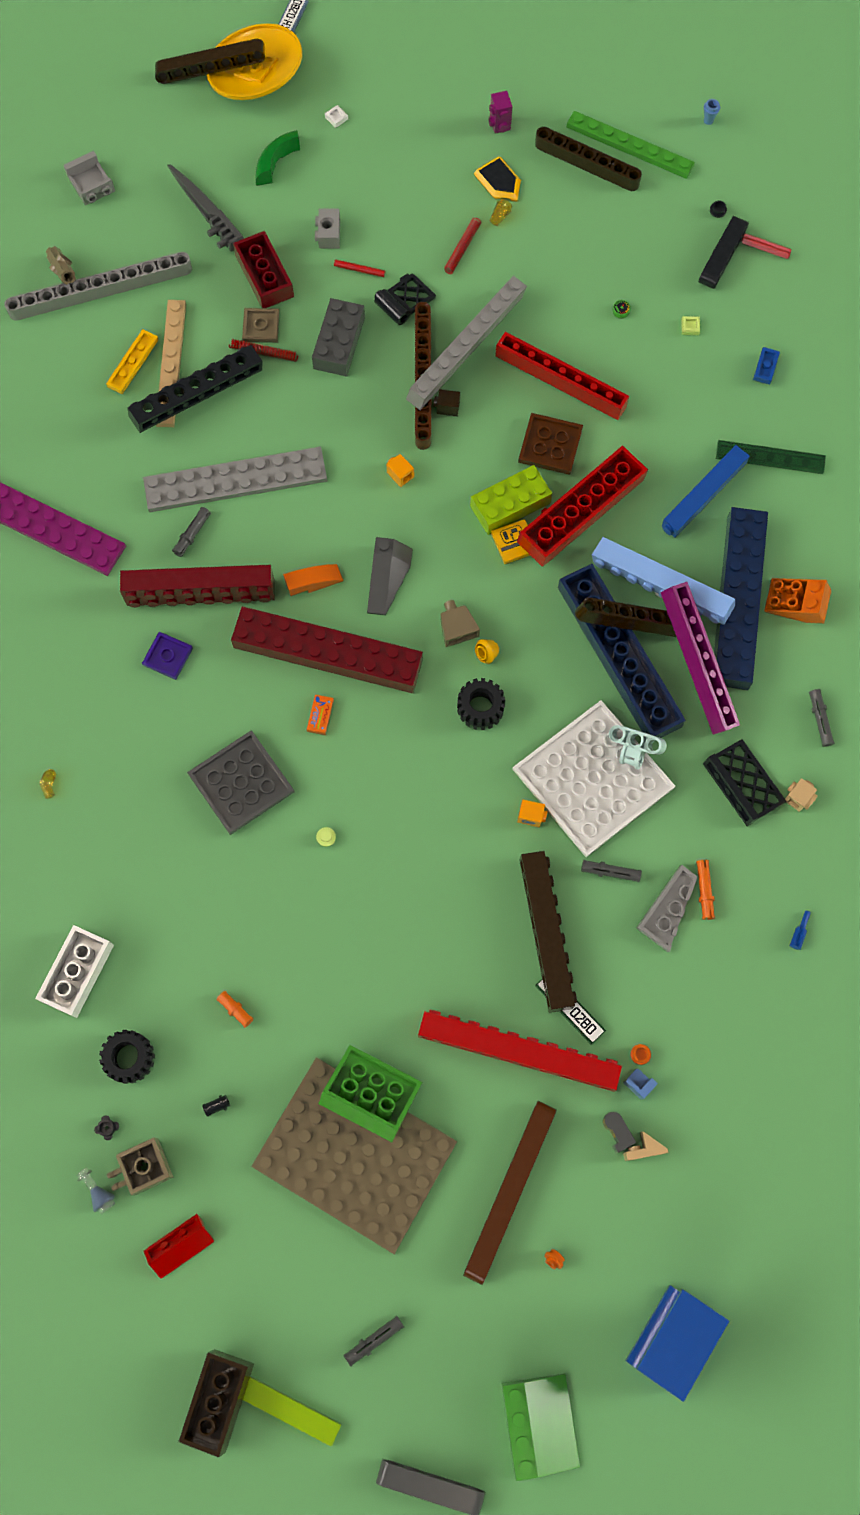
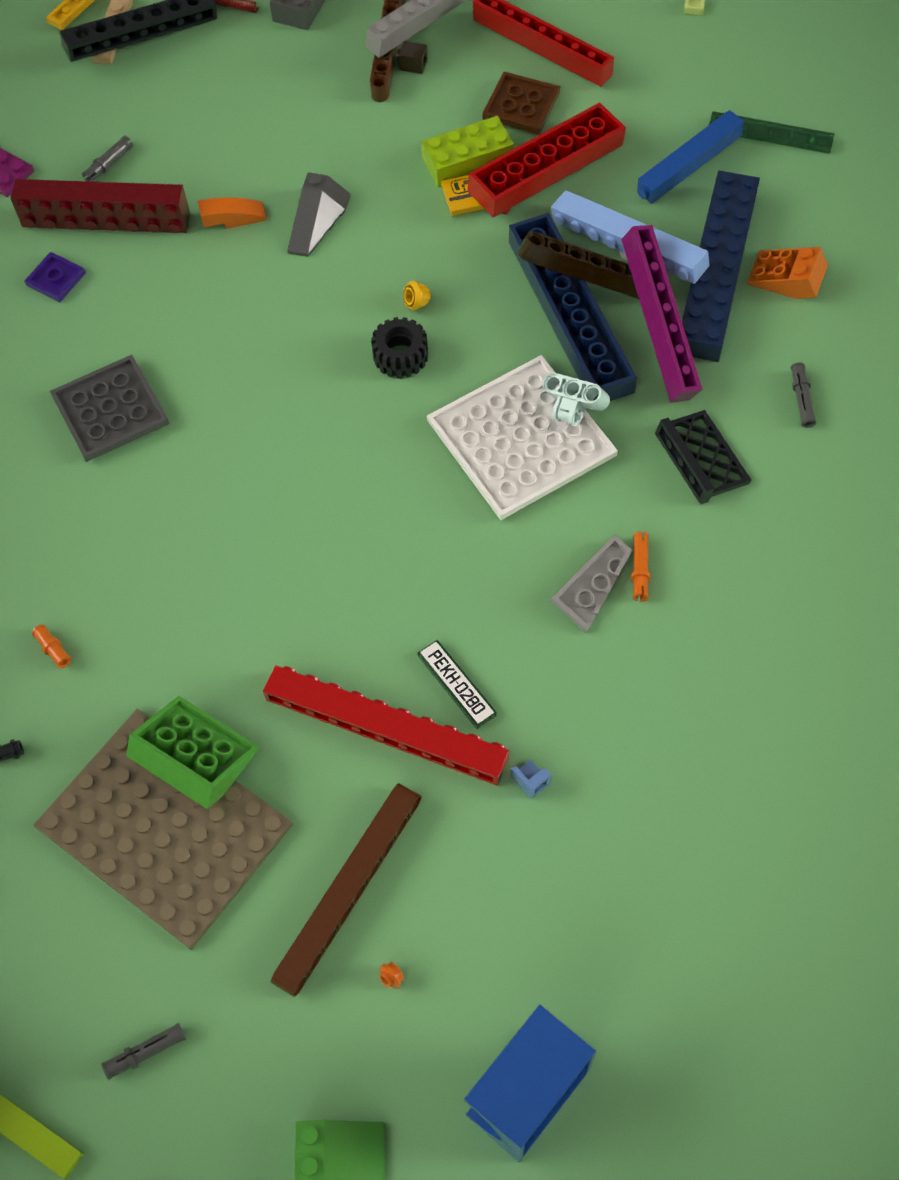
camera: 10 degrees right, 10 degrees down
(234, 479) = (166, 115): light grey plate -> none
(320, 714) = (214, 347): orange tile -> none
(326, 837) = (196, 472): yellowish green plate -> none
(327, 649) = (235, 281): dark red brick -> none
(400, 470) = (348, 116): light orange brick -> none
(457, 624) = (387, 268): dark tan torso -> none
(532, 813) = (441, 466): light orange brick -> none
(547, 932) = (440, 595): dark brown brick -> none
(611, 870) = (501, 530): dark grey pin -> none
(619, 1130) = (493, 822): dark grey leg -> none
(640, 1054) = (536, 744): orange plate -> none
(650, 1148) = (533, 855): tan slope -> none
(766, 365) = (775, 45): blue plate -> none
(800, 932) = (752, 625): blue axle -> none
(801, 794) = (769, 473): tan brick -> none

